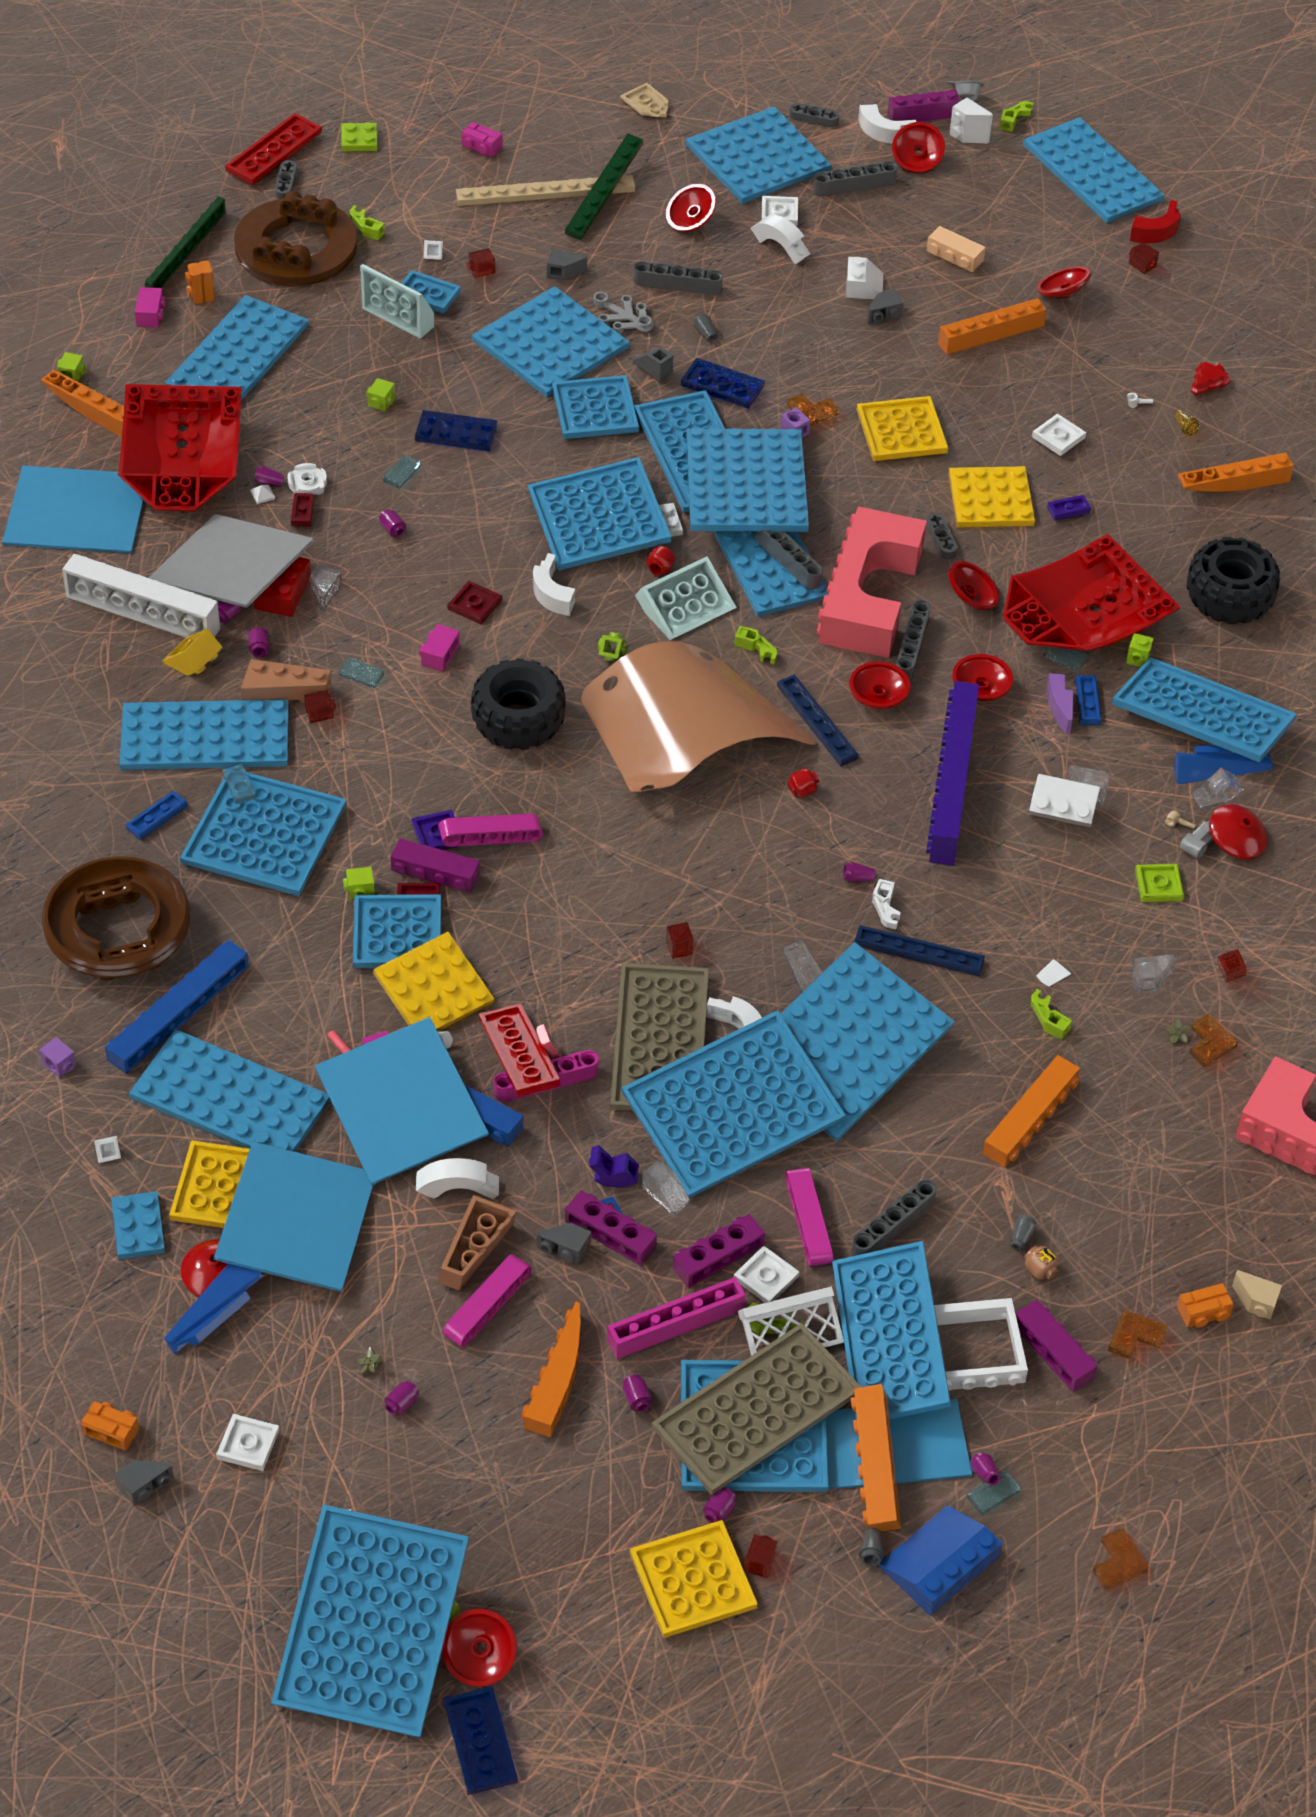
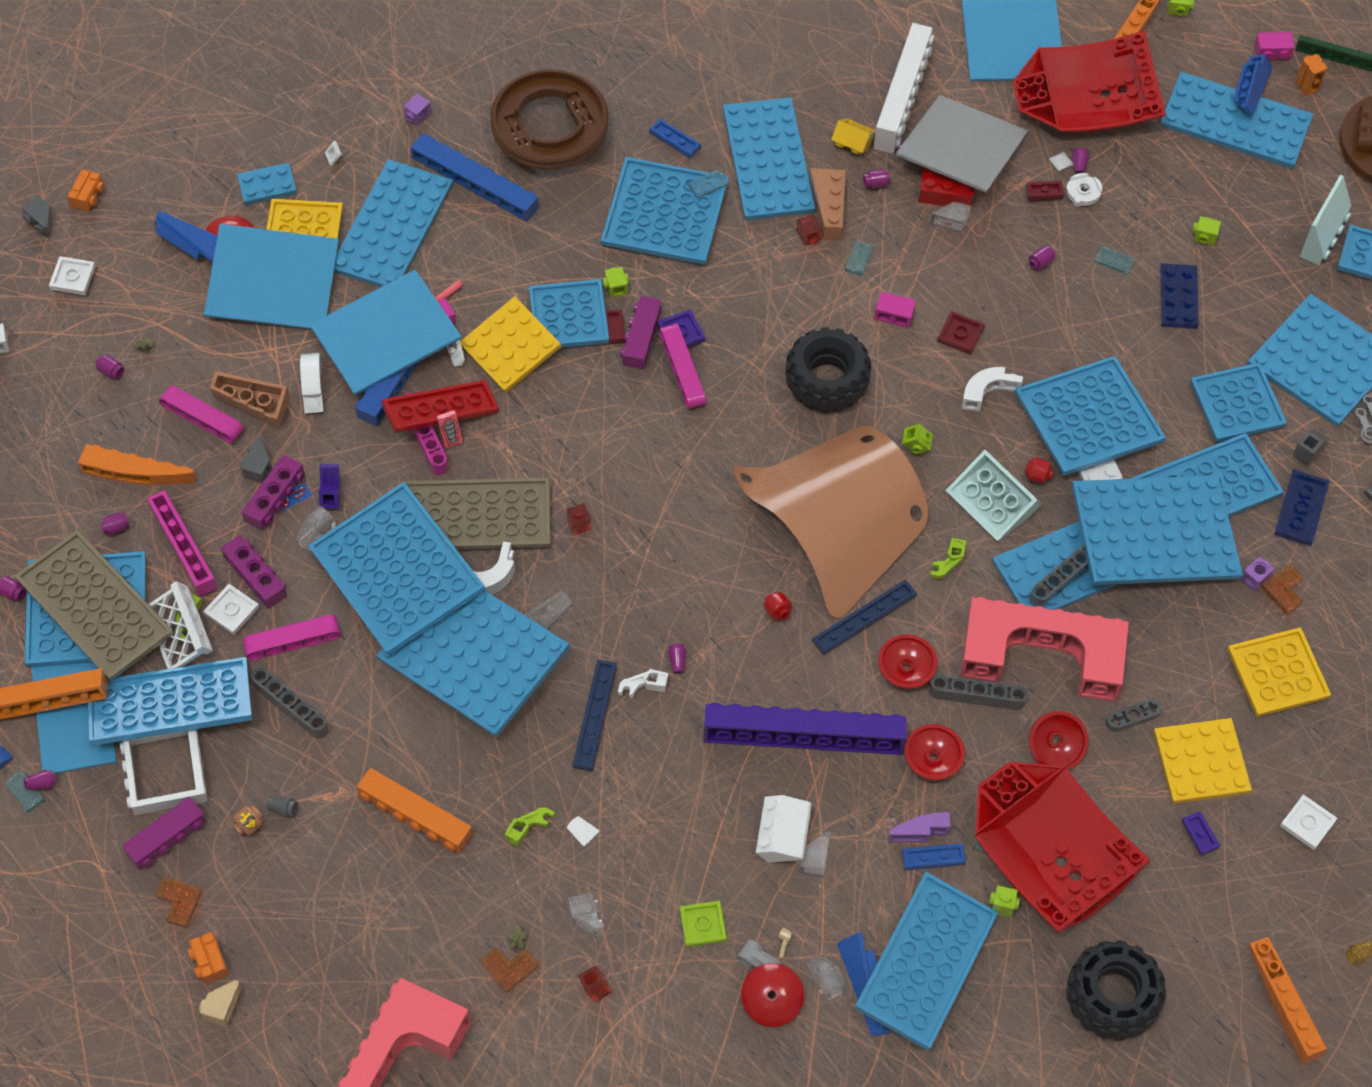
camera: 85 degrees right, 10 degrees up
(198, 328) = (1252, 82): none -> blue wedge

